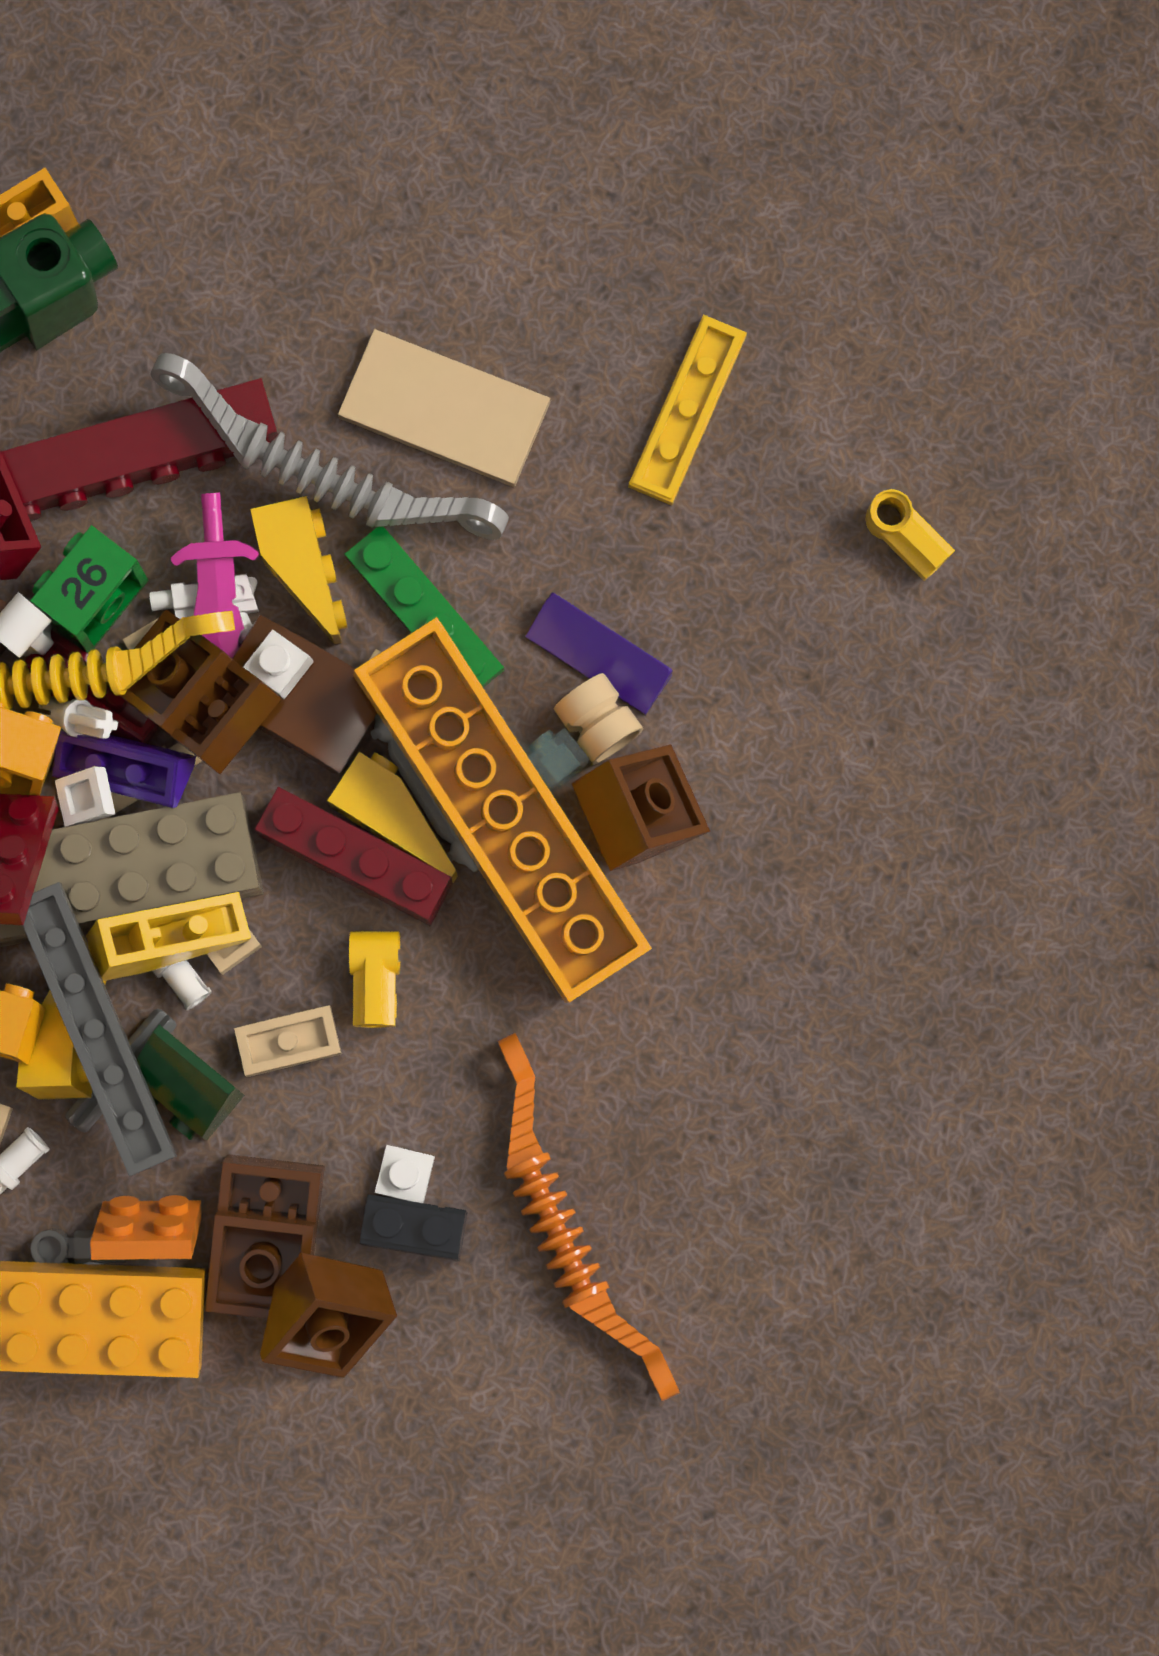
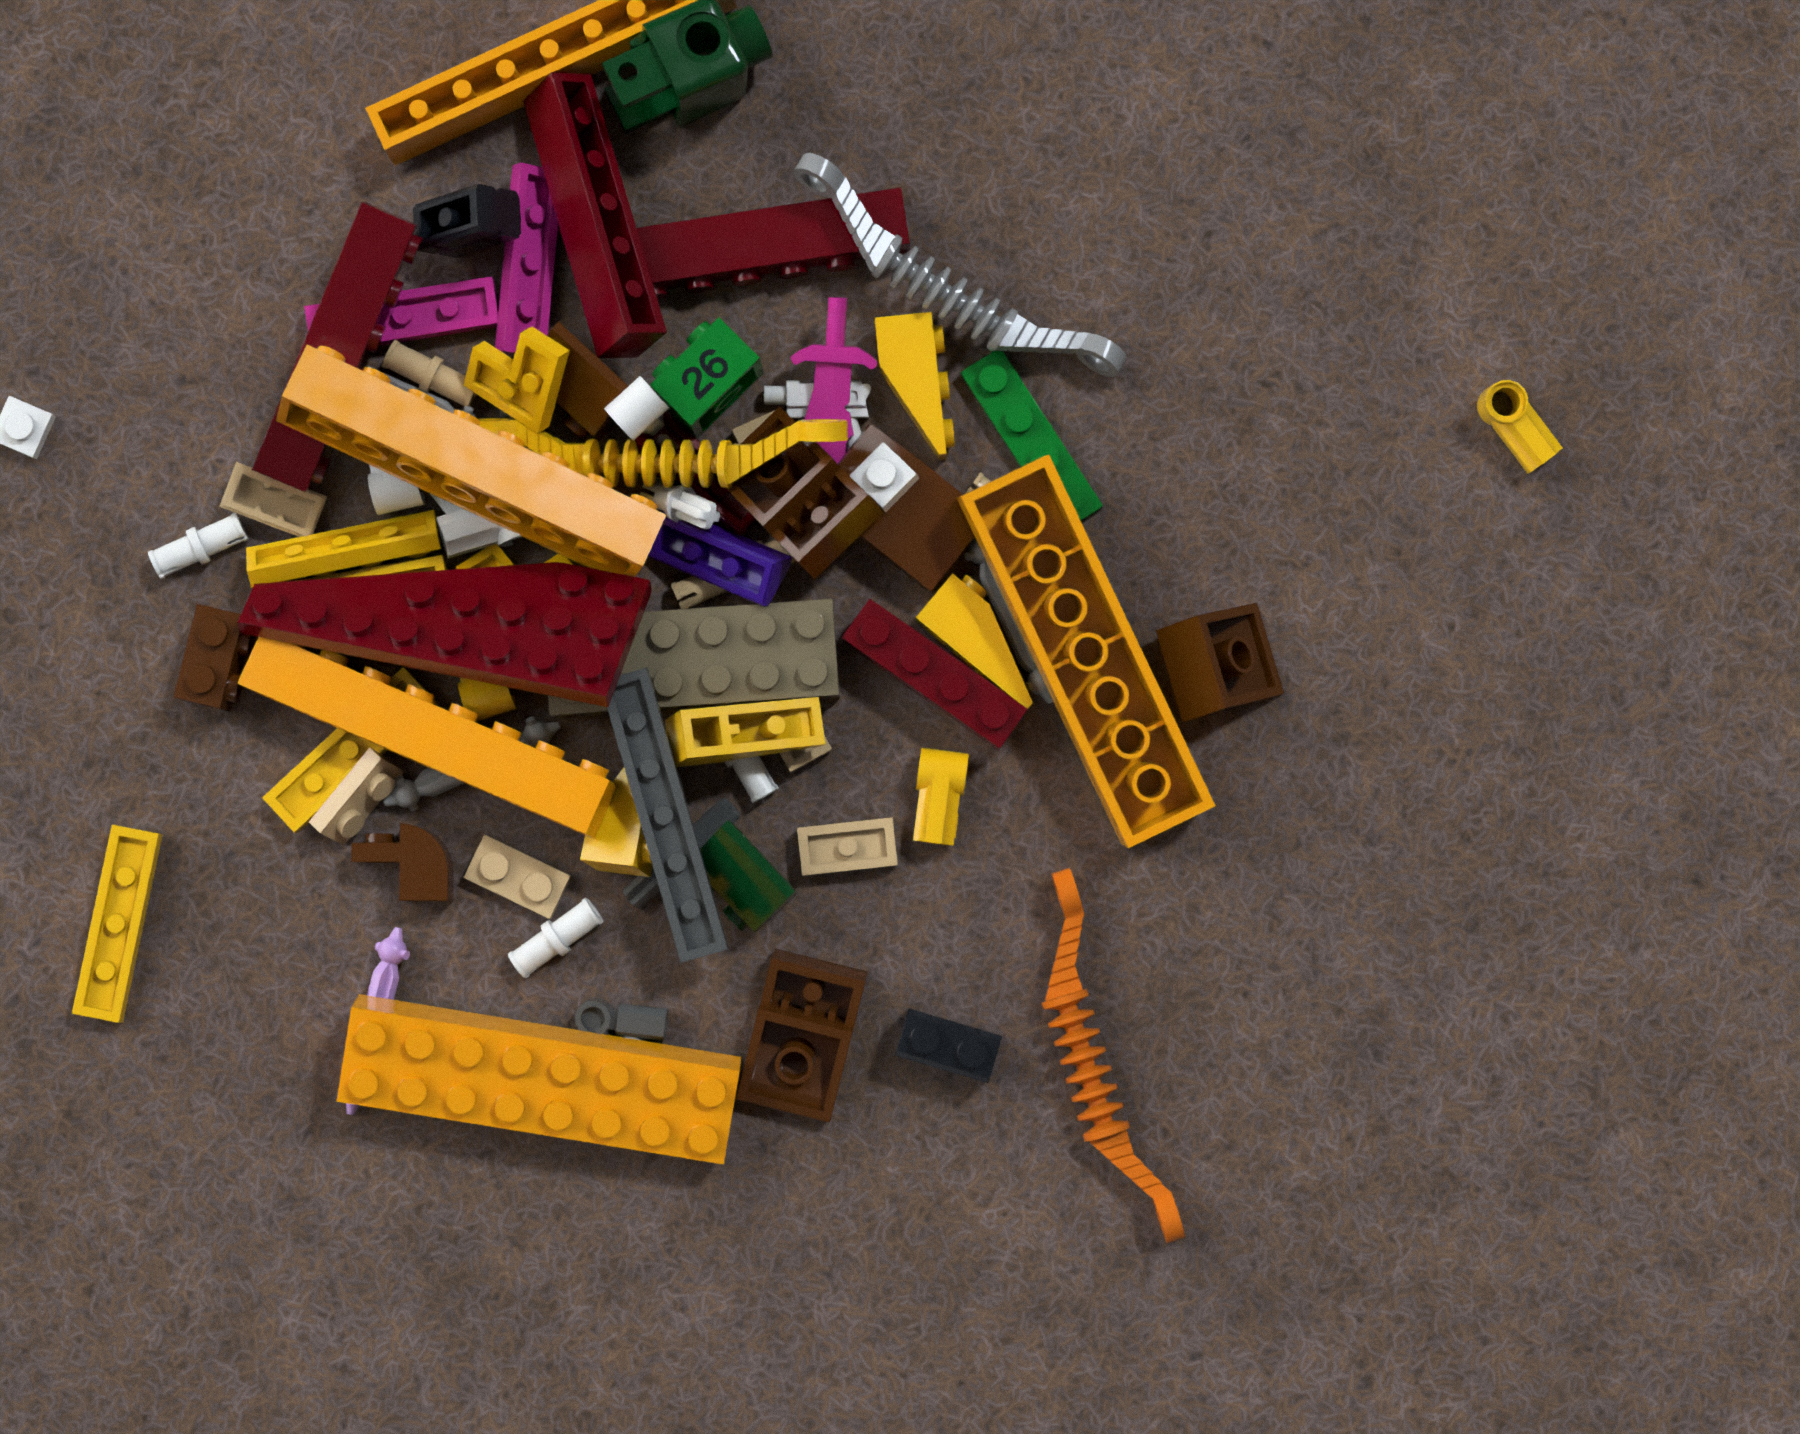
camera: 10 degrees right, 5 degrees up
(85, 796) = (679, 583): white plate -> none
(146, 1229) = (690, 1013): orange plate -> none
(326, 1315) = (854, 1119): reddish brown slope -> none
(404, 1174) = (944, 991): white plate -> none
(444, 408) = (1076, 238): tan tile -> none
(557, 758) = (1145, 603): clear light blue plate -> none
(596, 716) = (1190, 569): tan wheel -> none
(597, 650) = (1198, 504): dark purple slope -> none
(687, 410) = (1316, 271): yellow tile -> none

